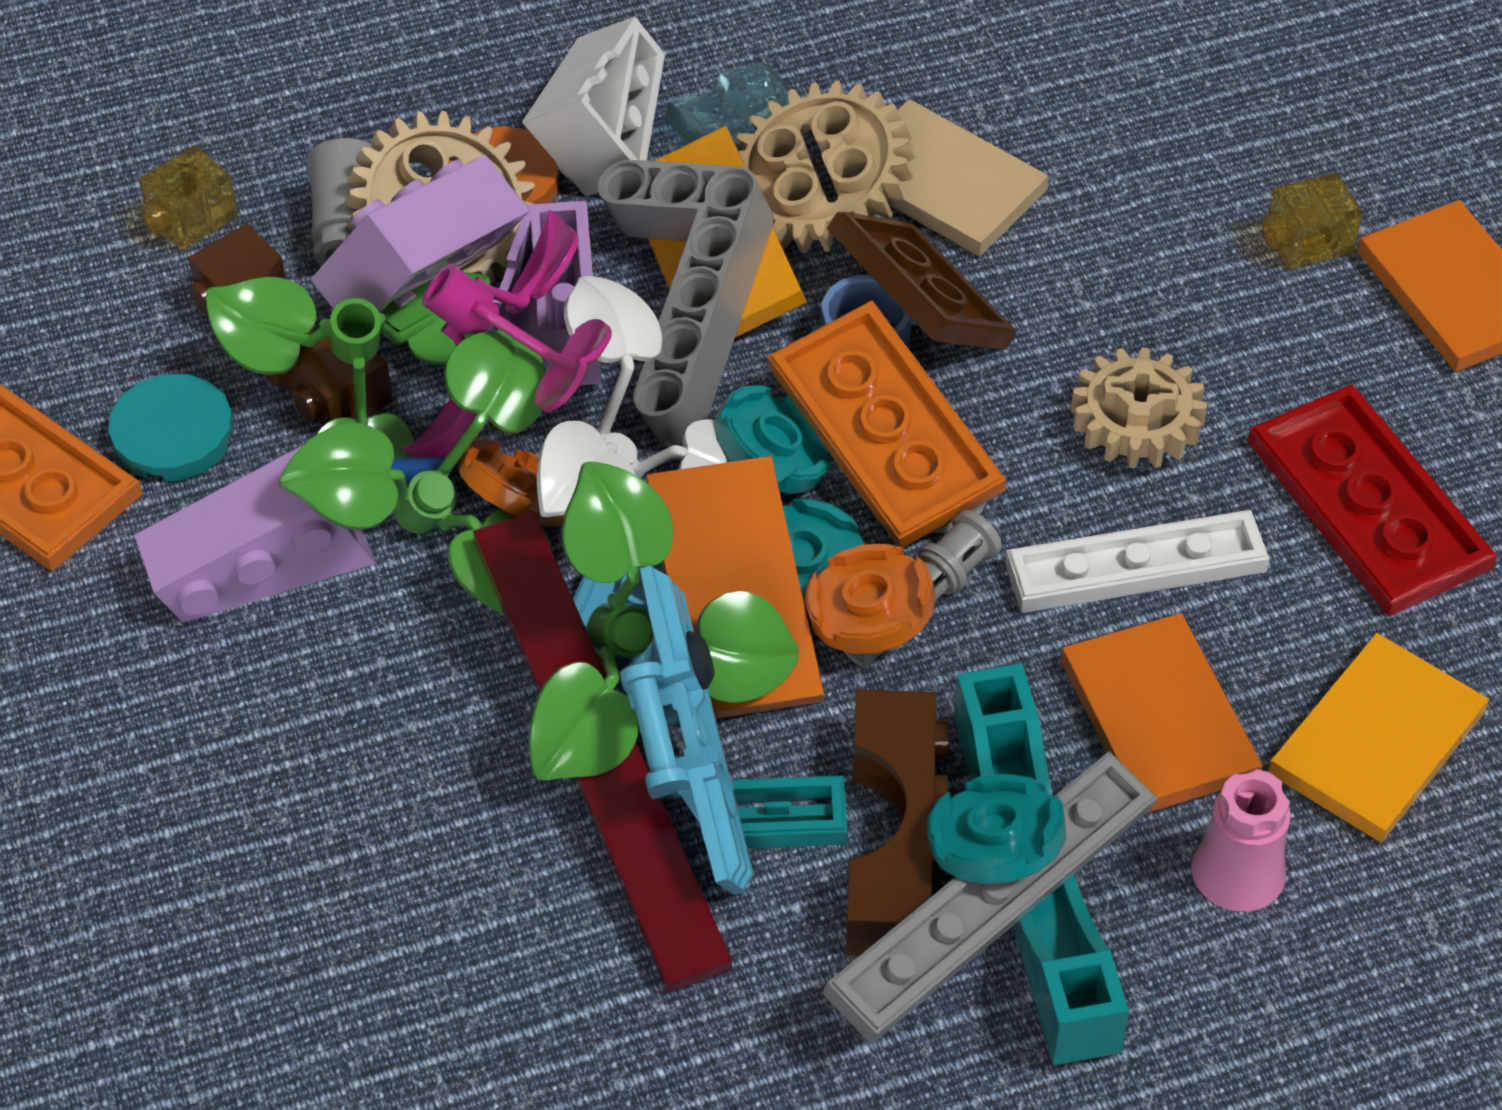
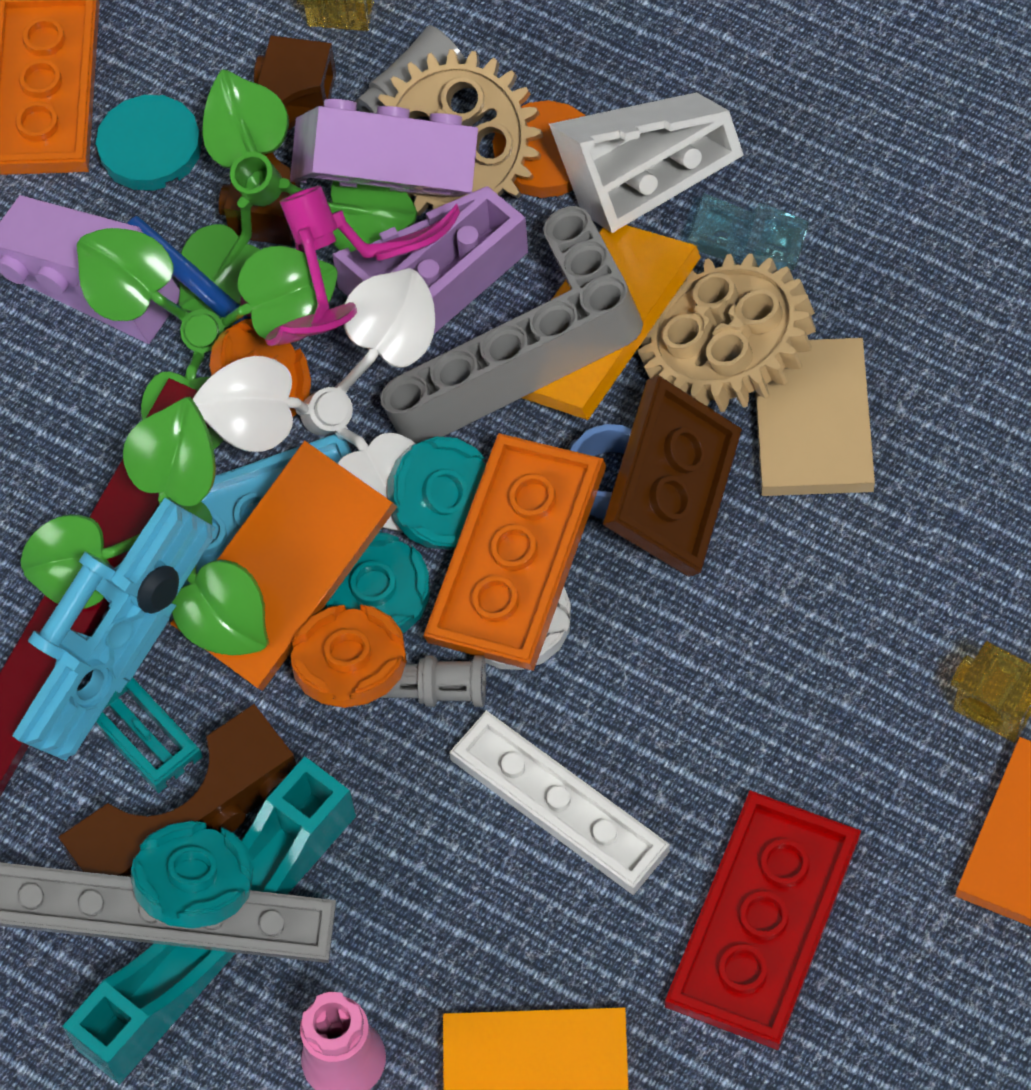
camera: 55 degrees right, 10 degrees up
(1138, 407) = (701, 679): tan gear -> none
(1160, 709) = (430, 912): orange tile -> none

